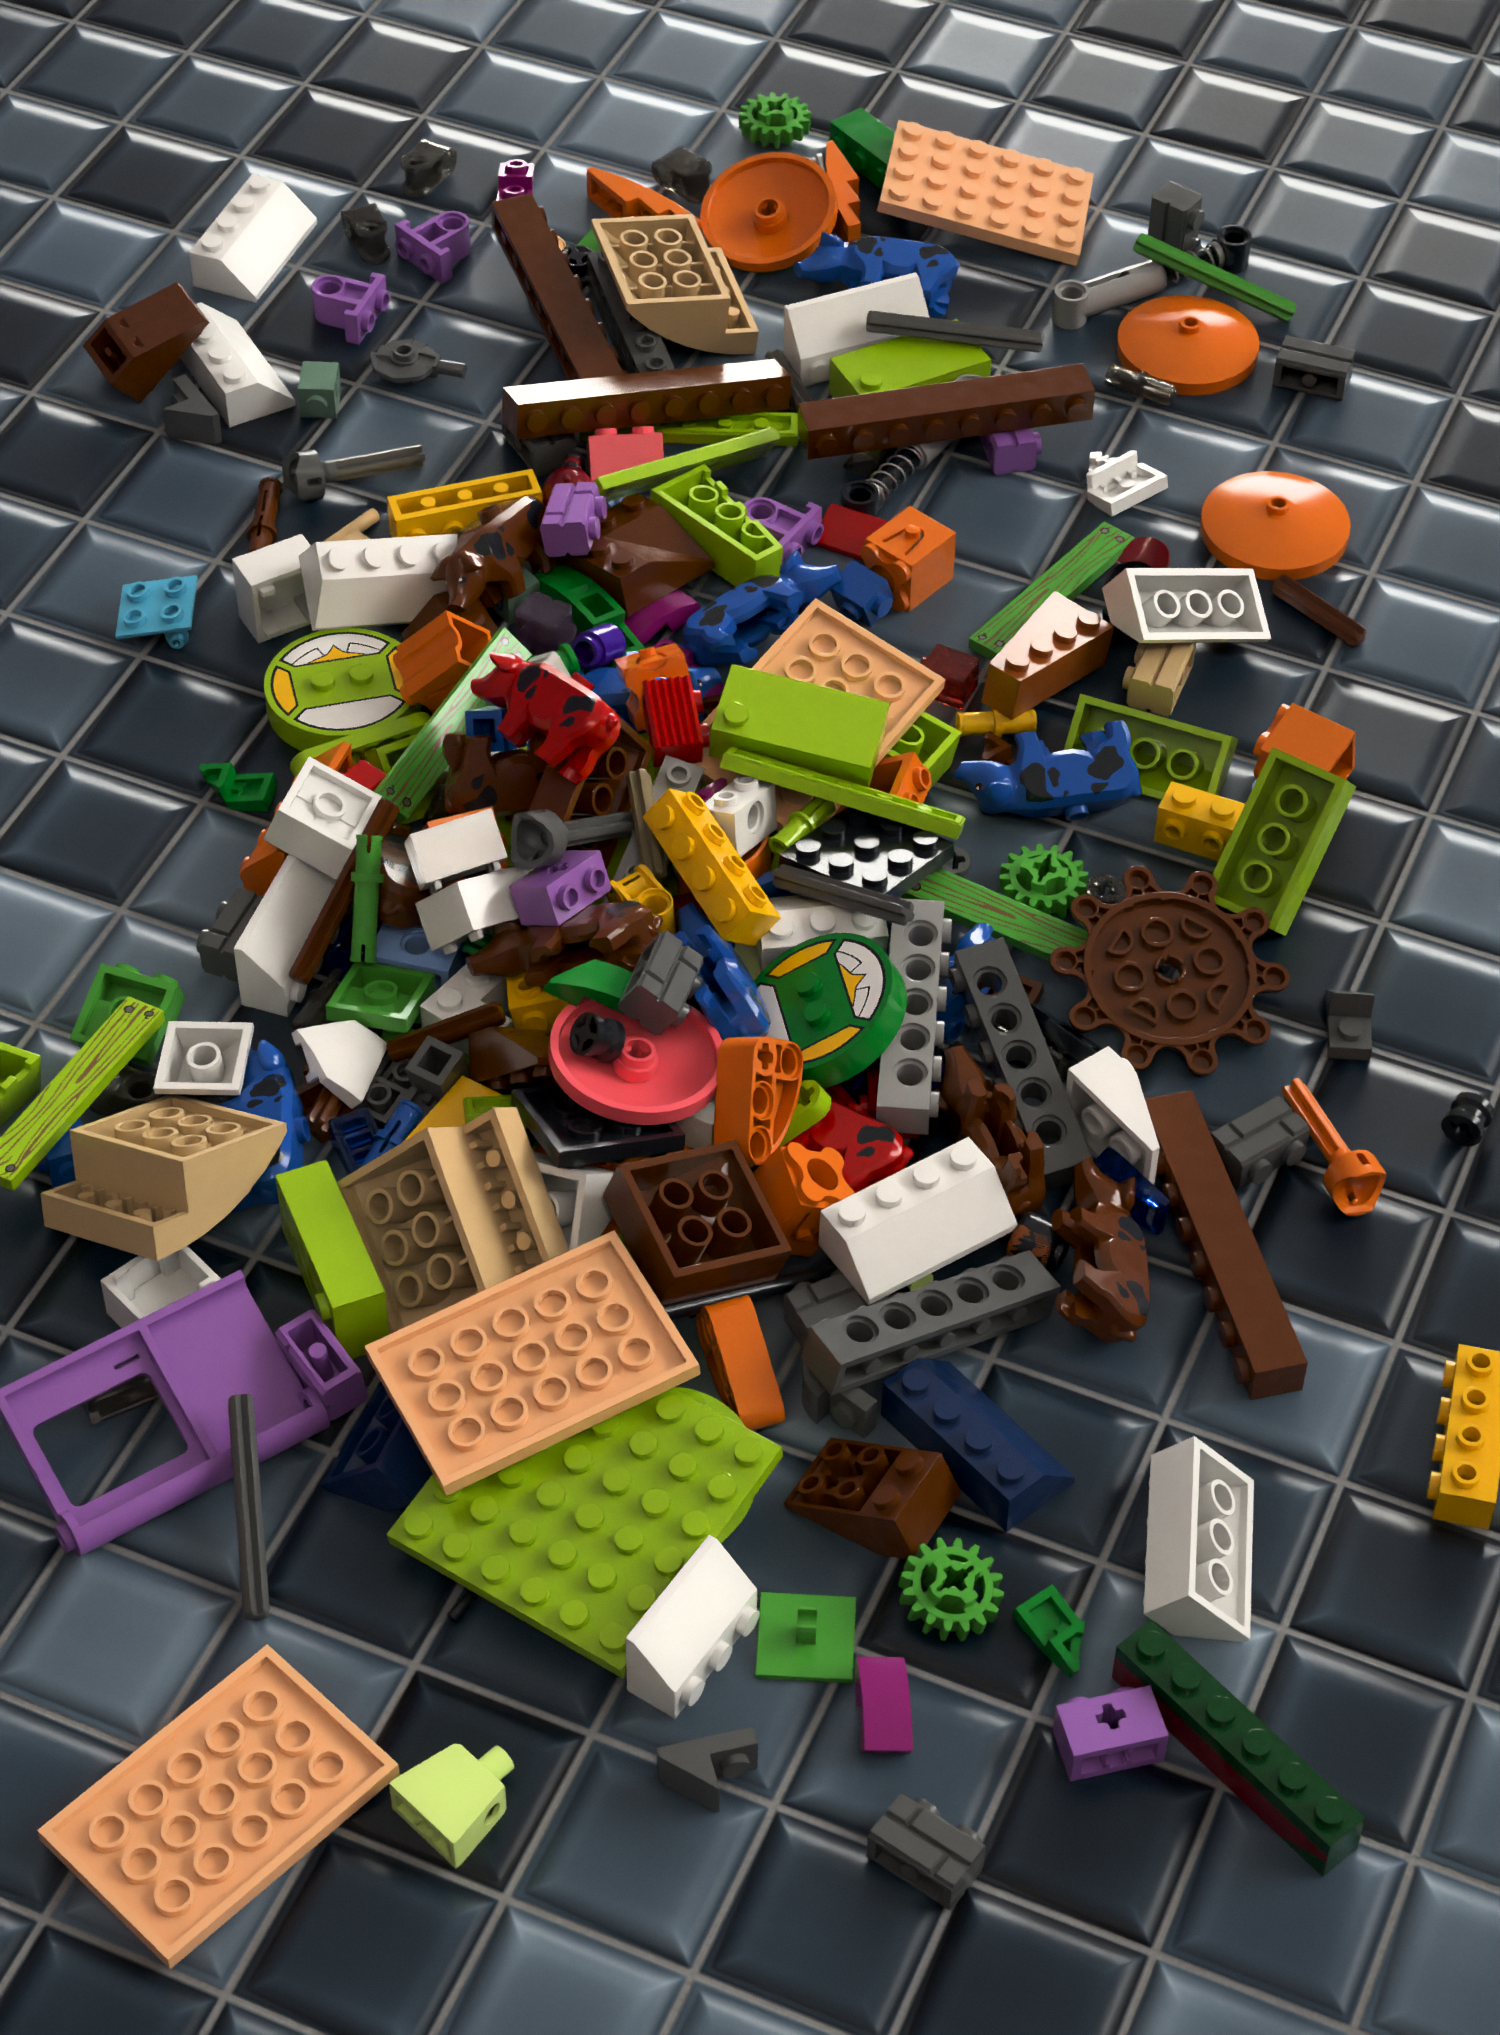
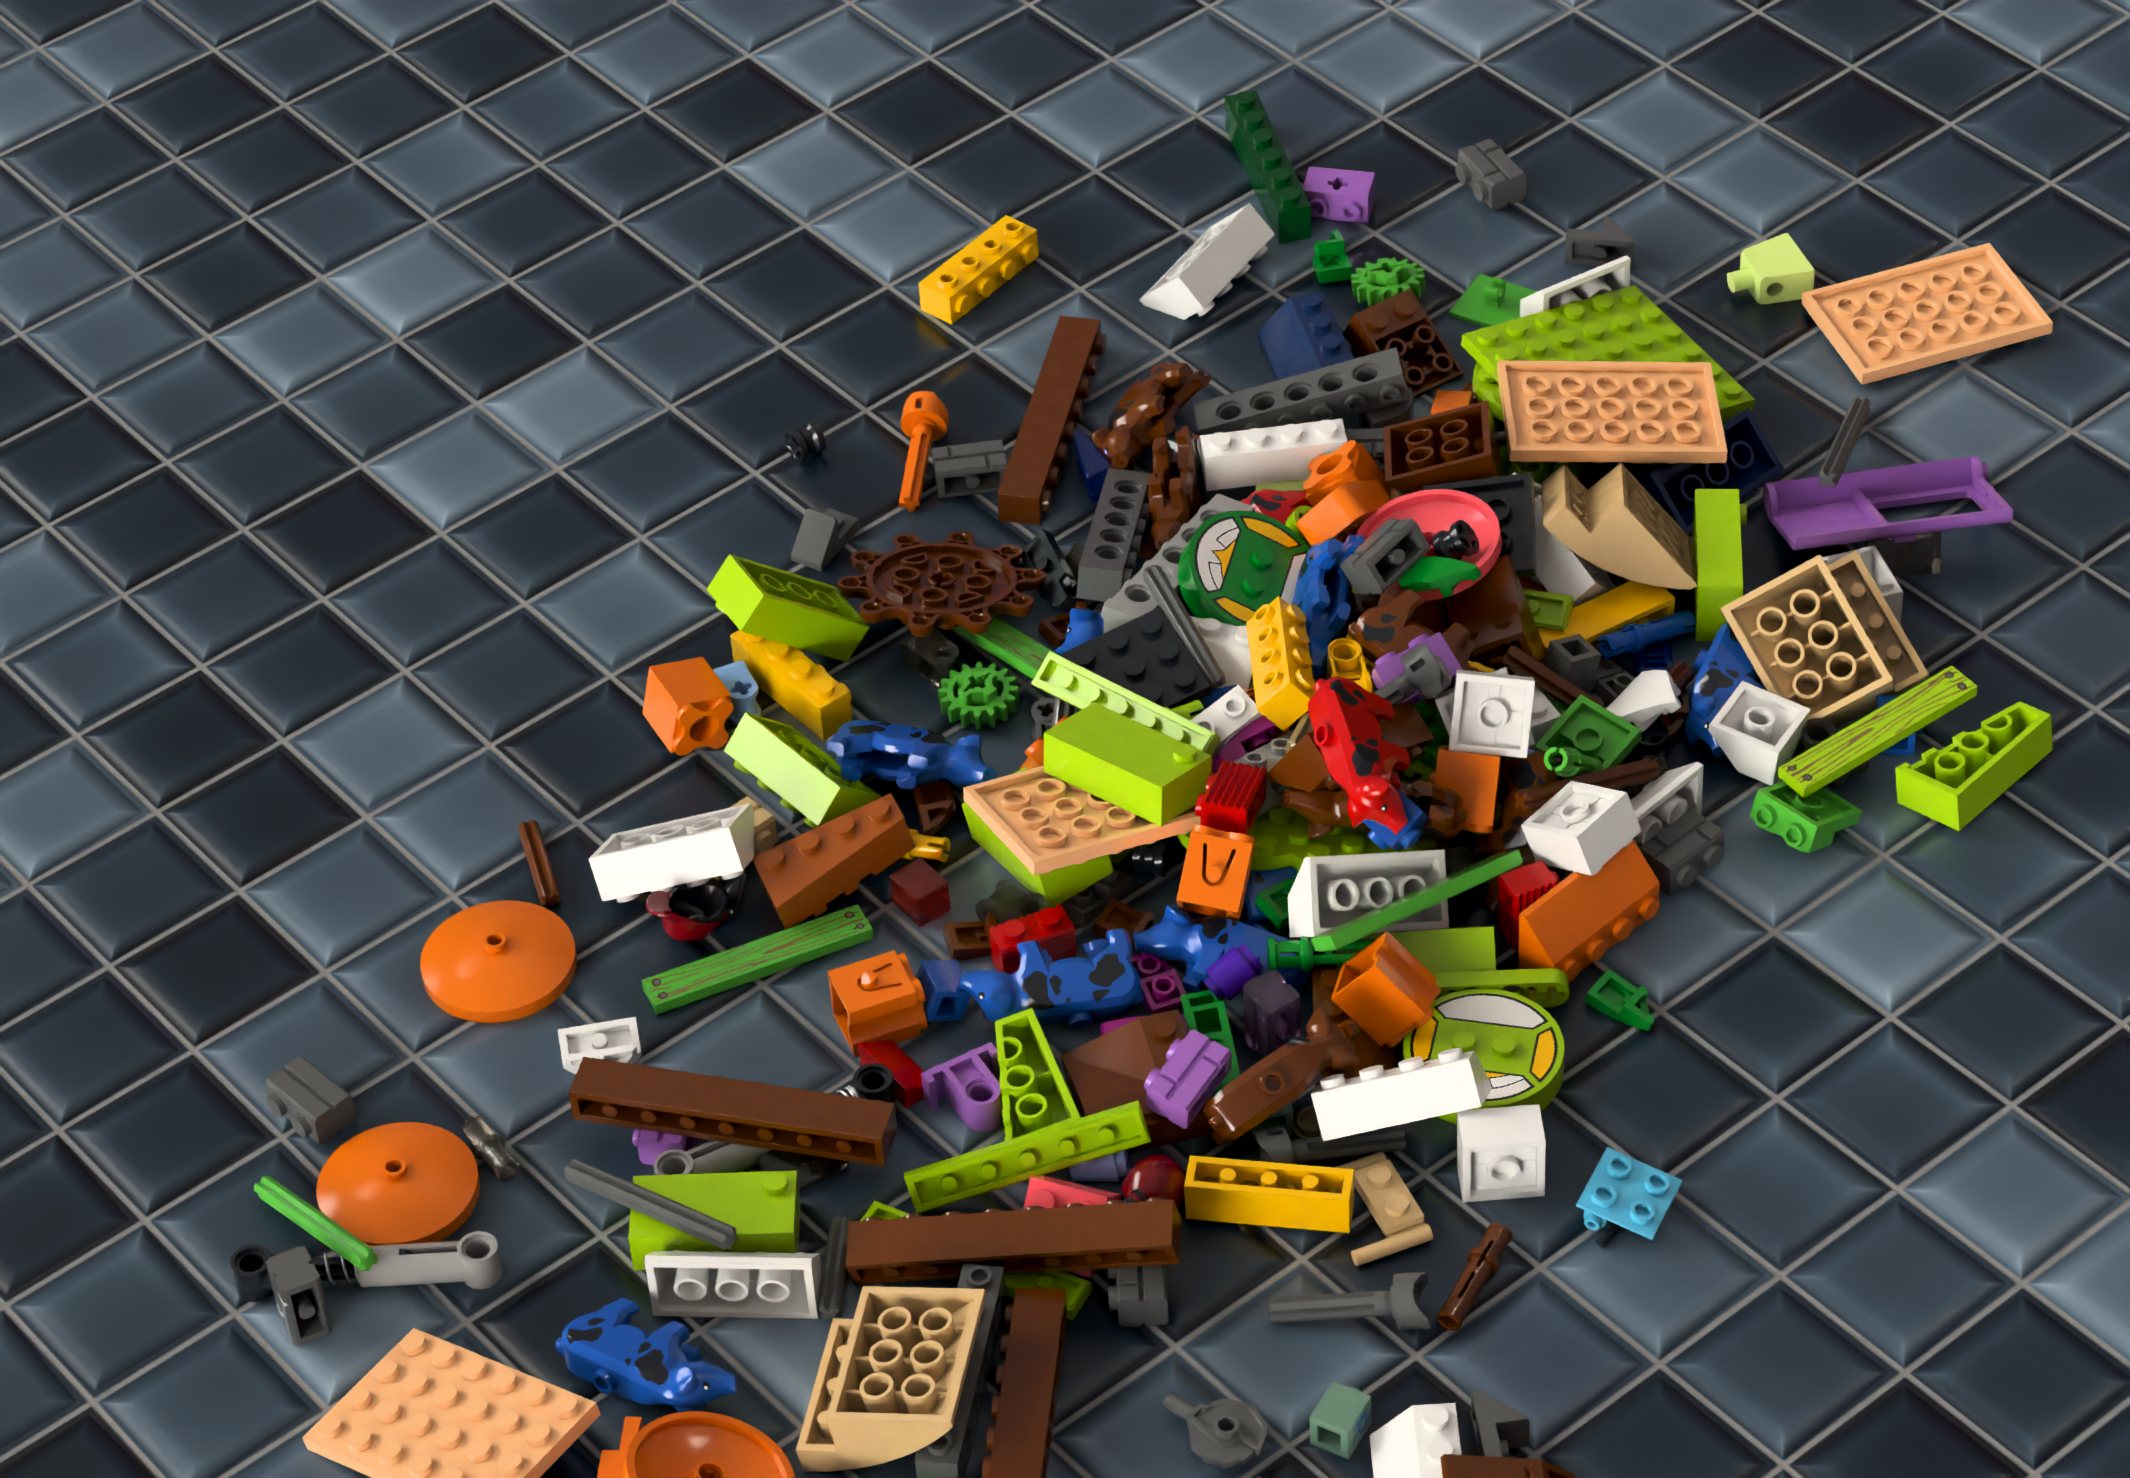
camera: 150 degrees left, 5 degrees down
(322, 1363) = (1763, 510): medium lavender brick -> none
(884, 1705) = (1470, 246): magenta slope -> none
(1113, 1110) = (1068, 491): white slope -> none

